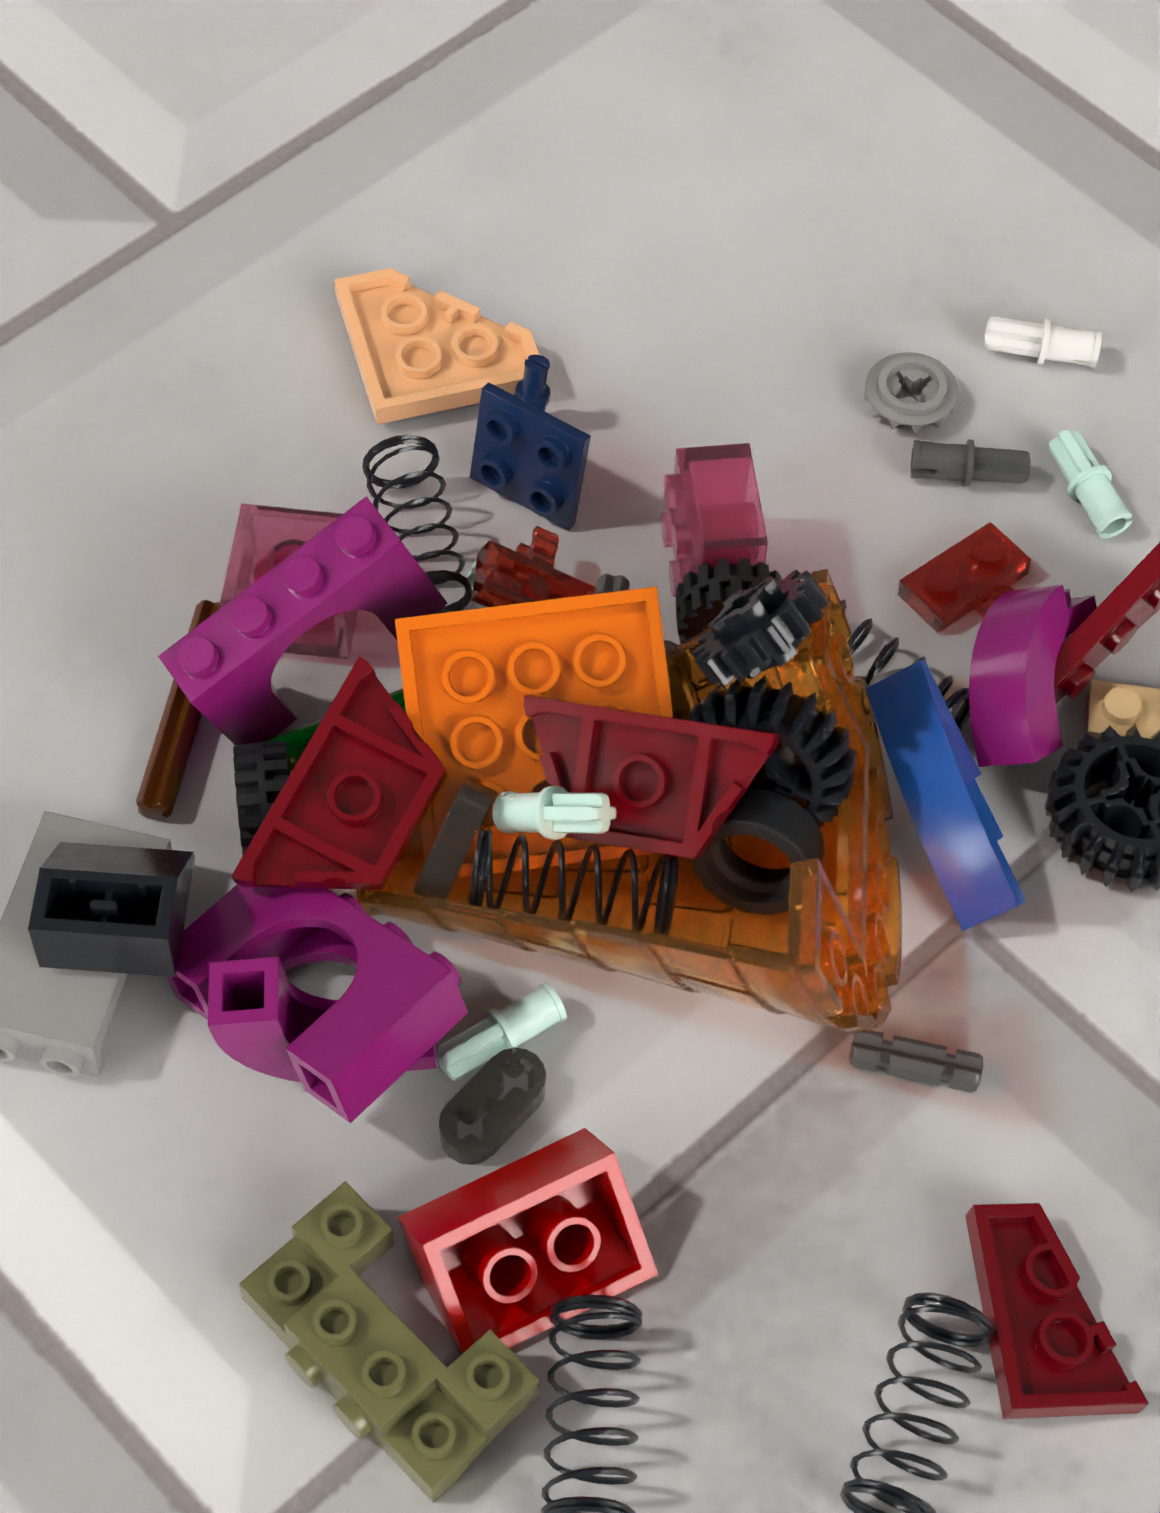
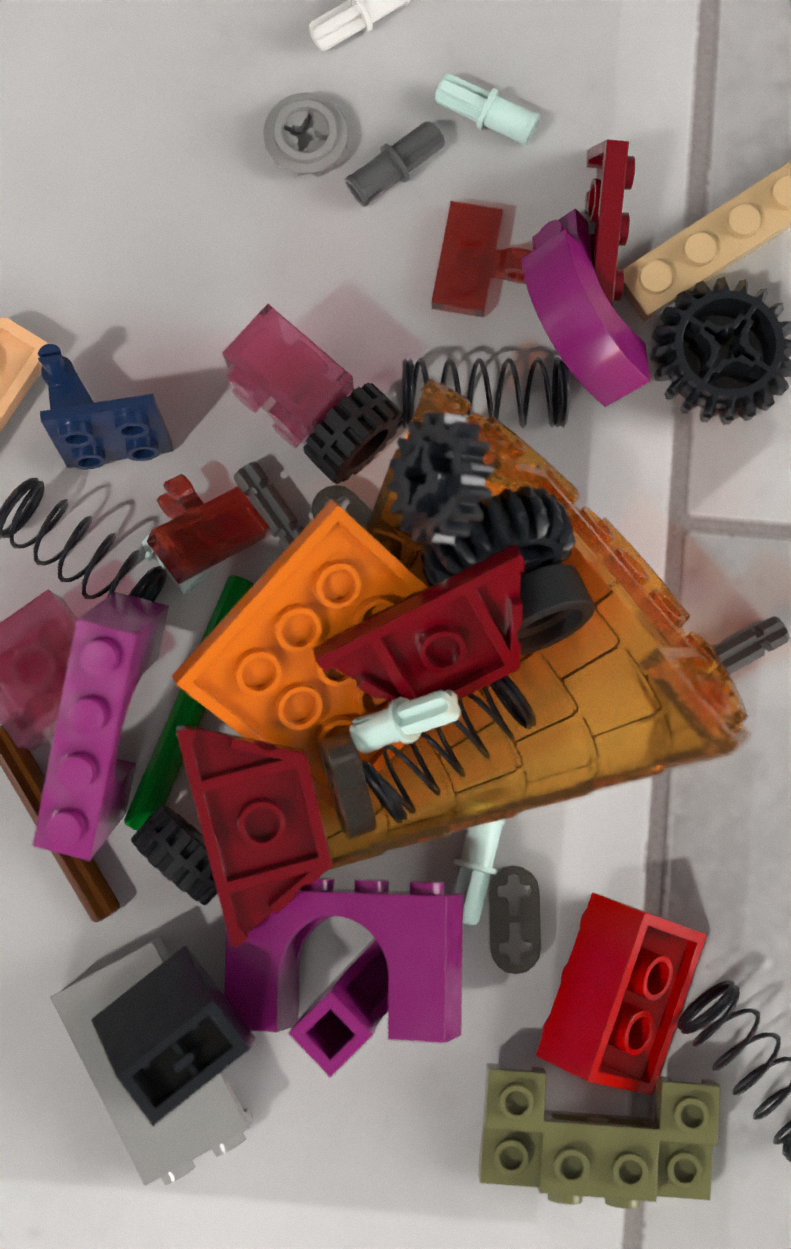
camera: 40 degrees left, 25 degrees up
(943, 796) = (607, 455): blue slope -> none

